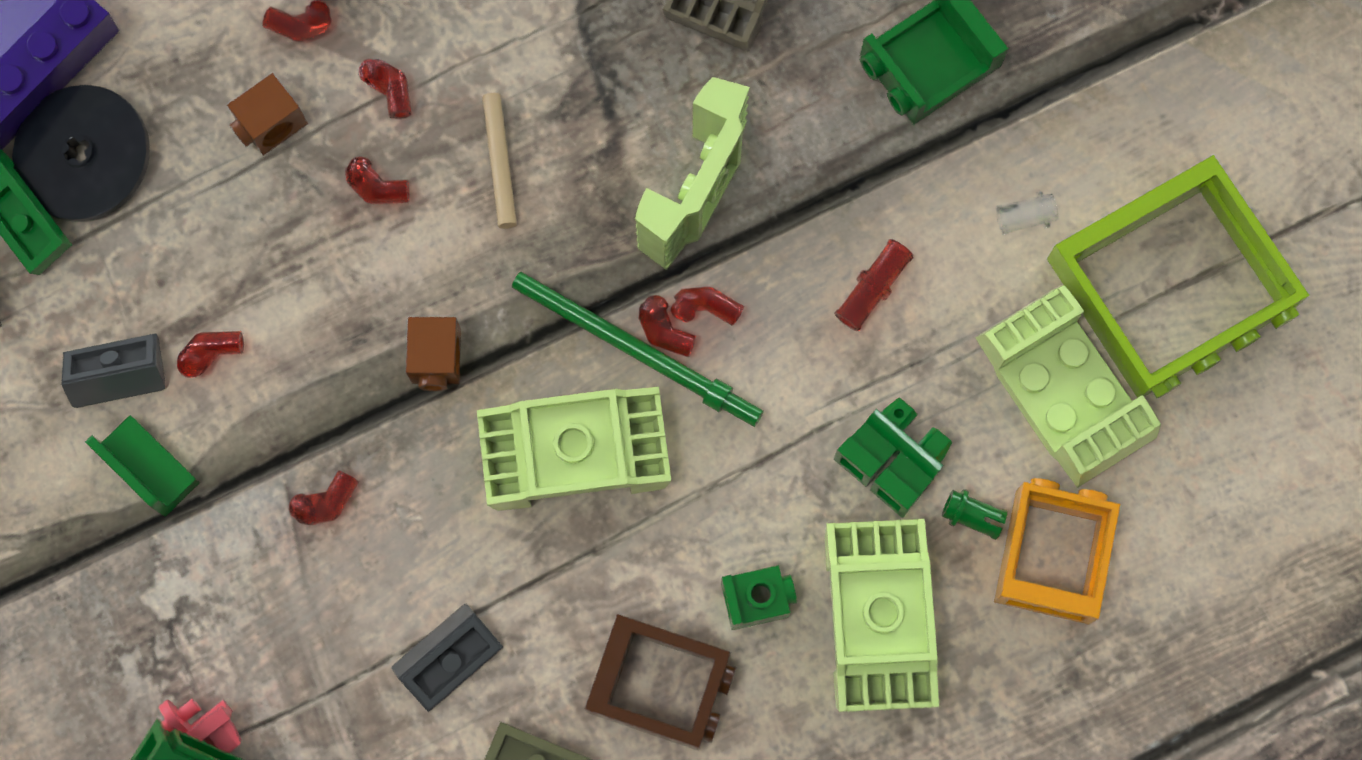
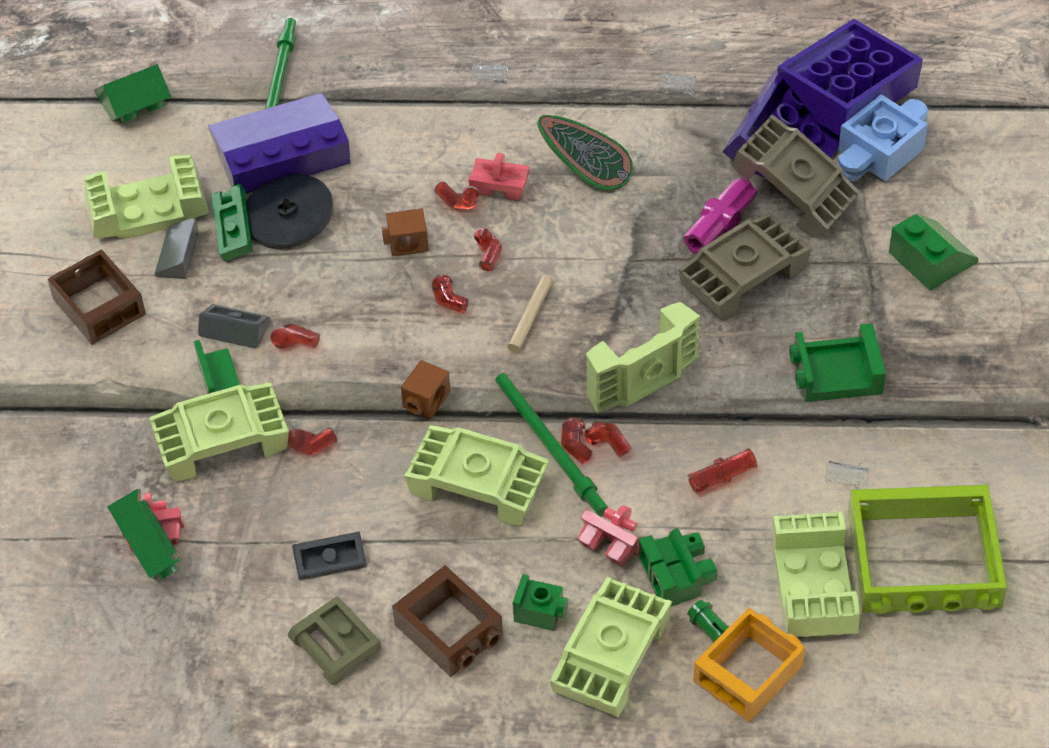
camera: 30 degrees right, 25 degrees down
(195, 551) = (218, 425): none -> yellowish green plate
(812, 454) = (597, 528): none -> coral hips

